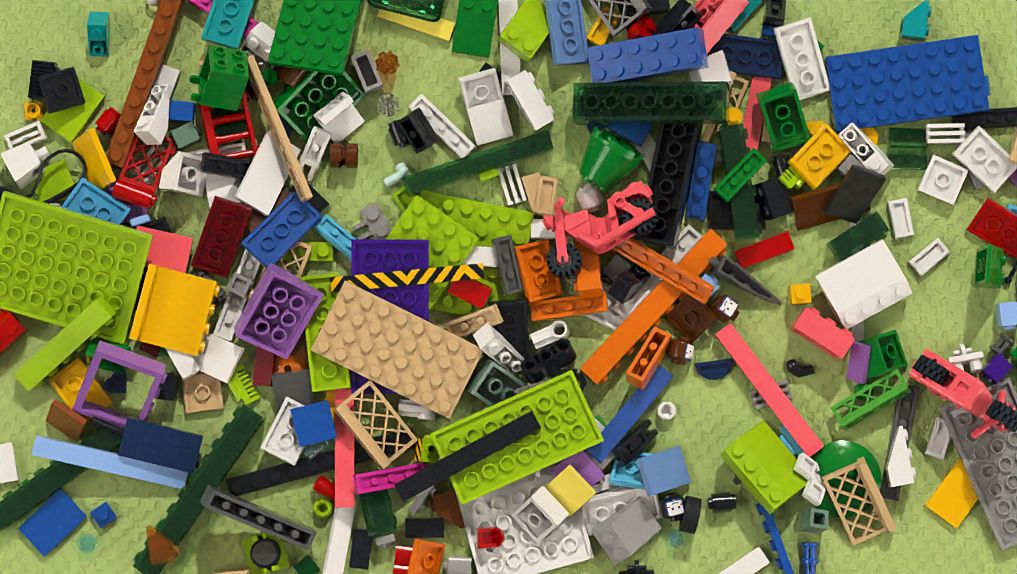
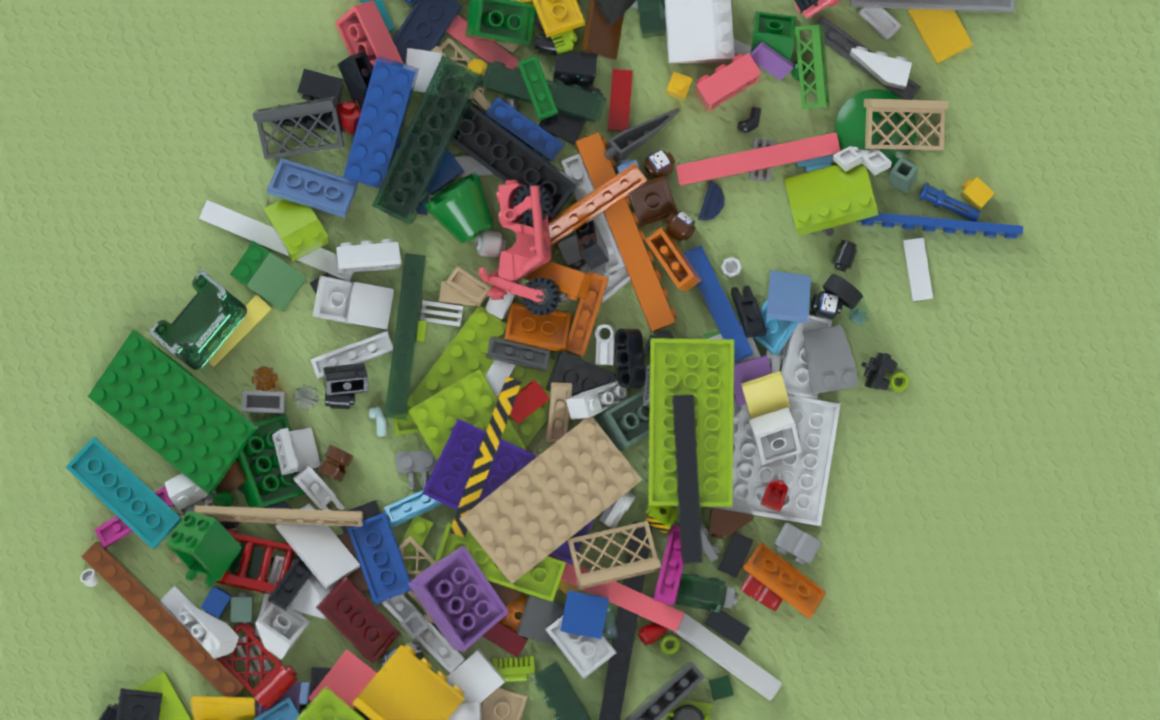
camera: 60 degrees left, 0 degrees up
(98, 33) = (99, 648): teal slope -> none
(107, 121) = (191, 679): red brick -> none
(600, 33) = (333, 157): yellow tile -> none

